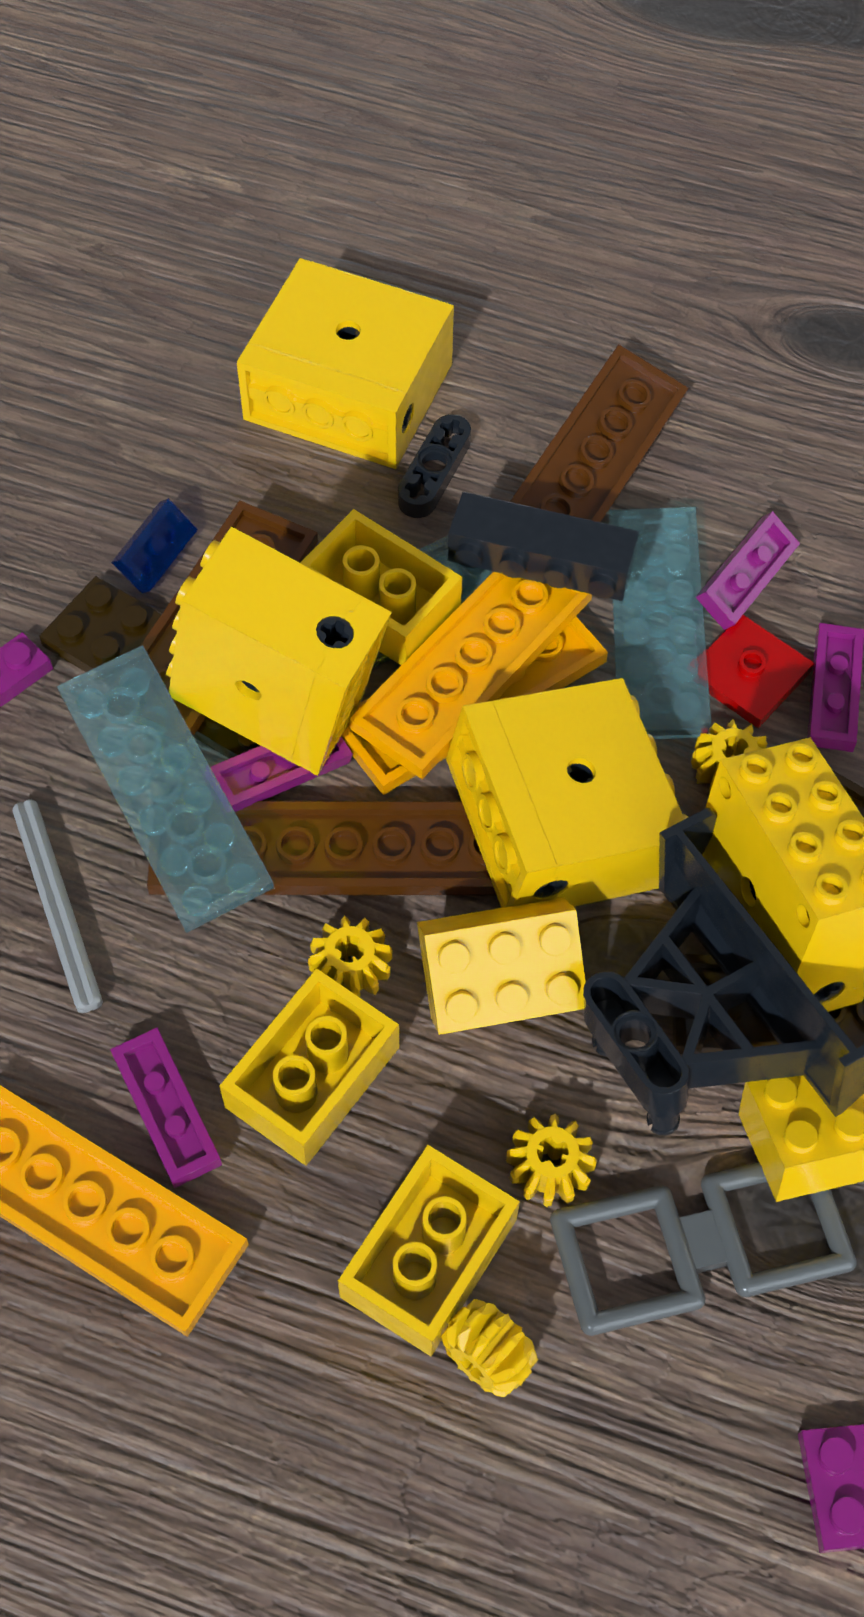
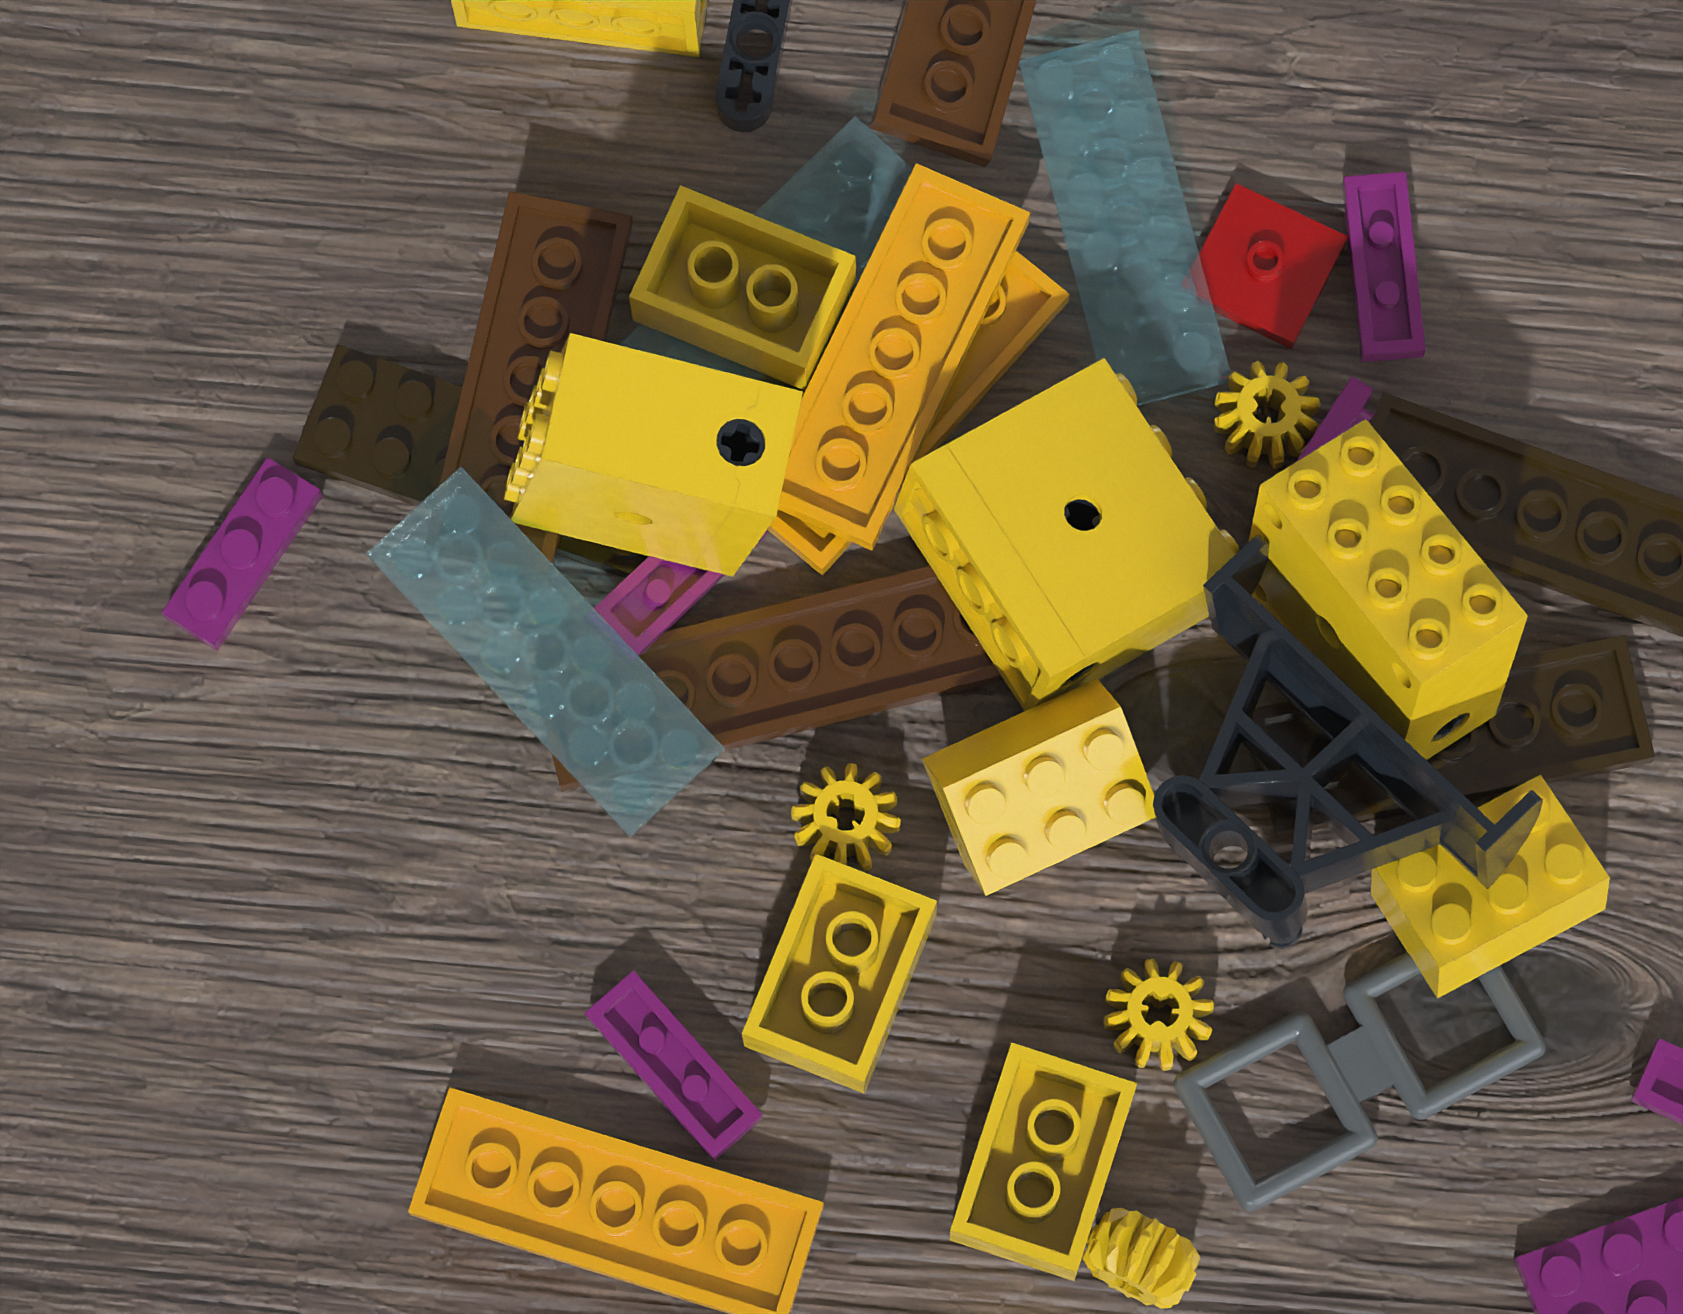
camera: 10 degrees left, 15 degrees up
(57, 907) = (448, 835): light grey axle -> none
(154, 546) = (405, 278): clear blue plate -> none
(542, 546) = (949, 175): black brick -> none
(747, 570) = (1231, 115): magenta plate -> none

